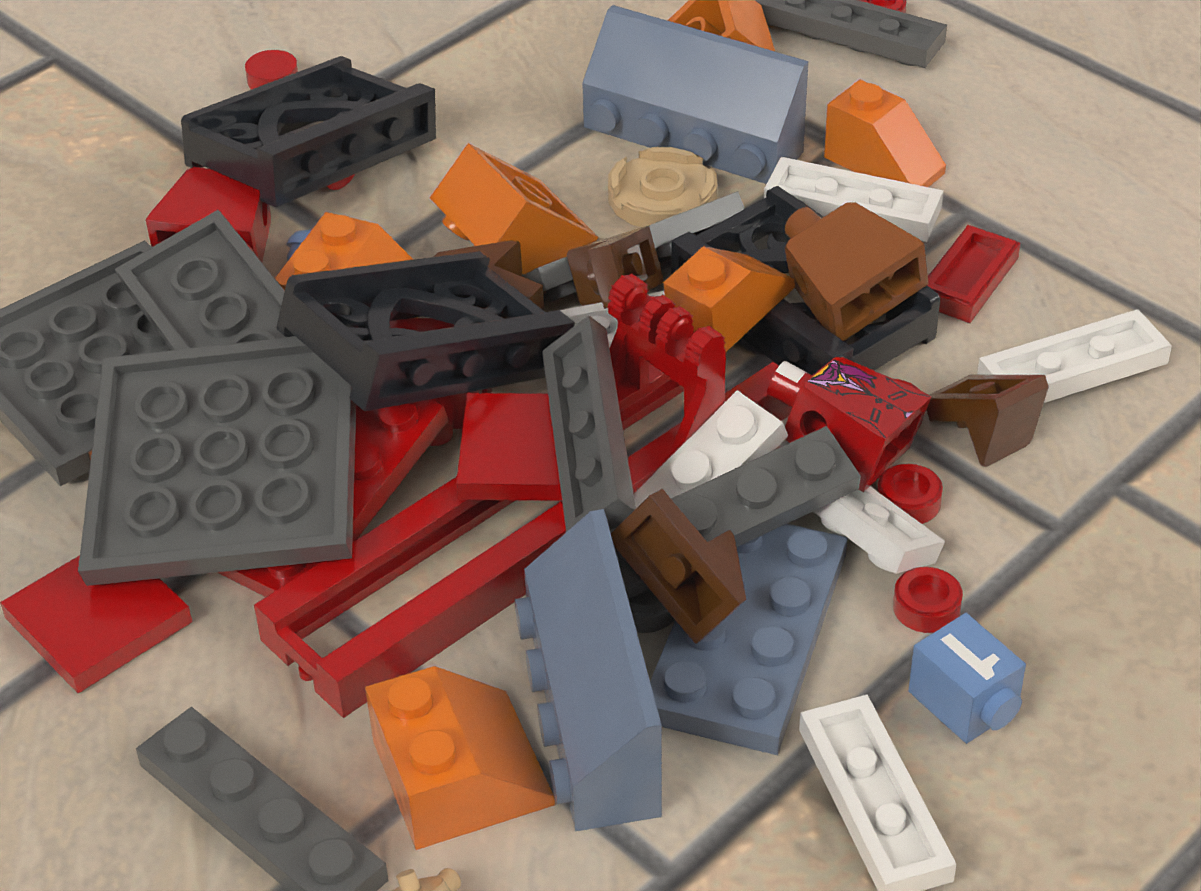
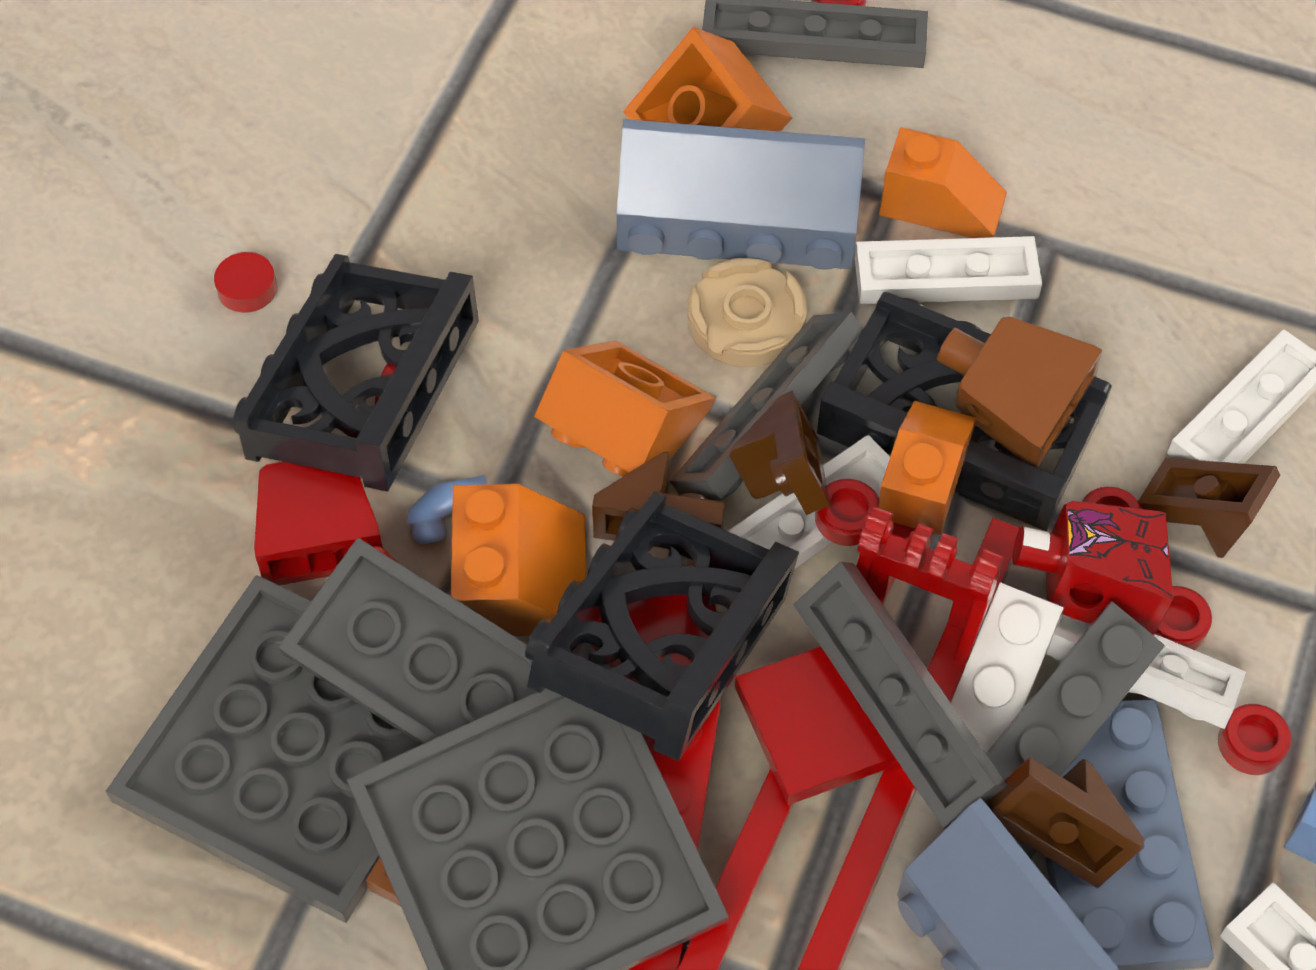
camera: 25 degrees left, 15 degrees up
(972, 271) = (1099, 316): red tile -> none

